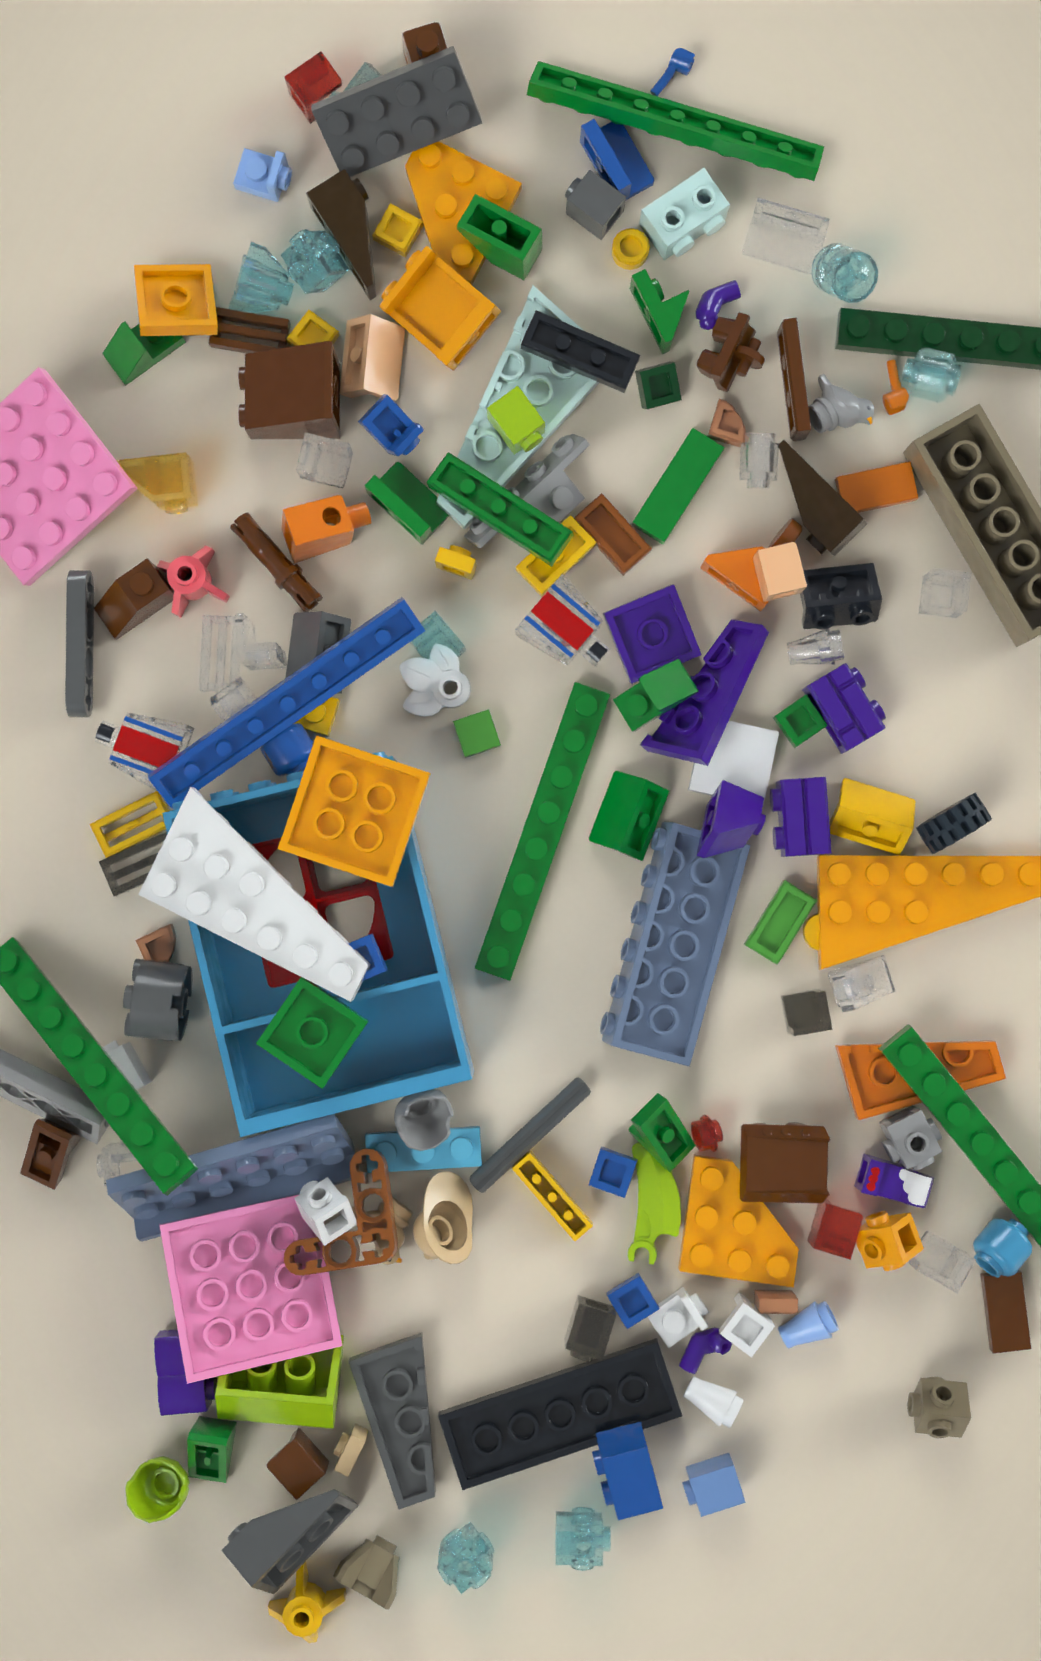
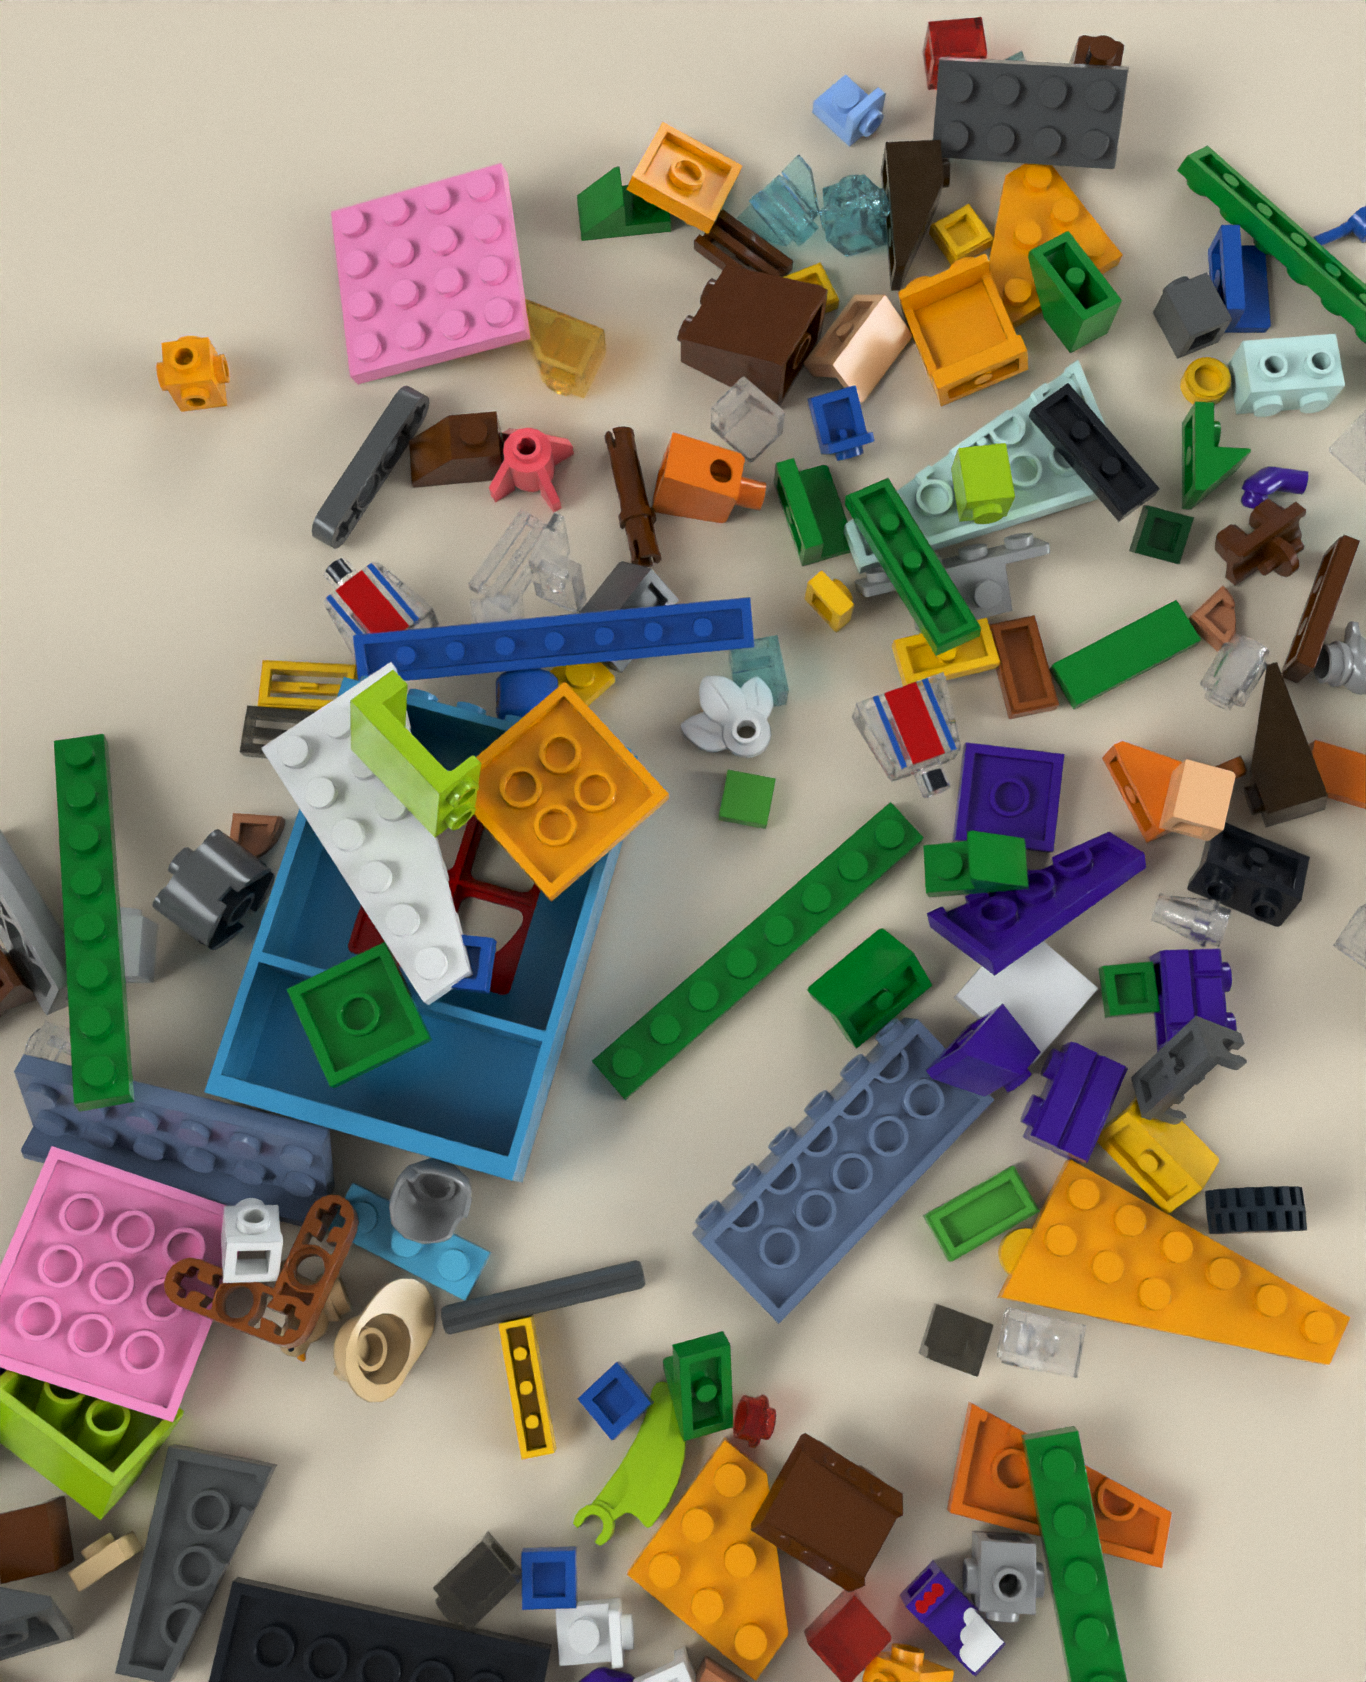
camera: 30 degrees right, 10 degrees down
(248, 858) = (404, 765): none -> lime panel
(860, 756) = (1182, 1065): none -> dark grey hinge

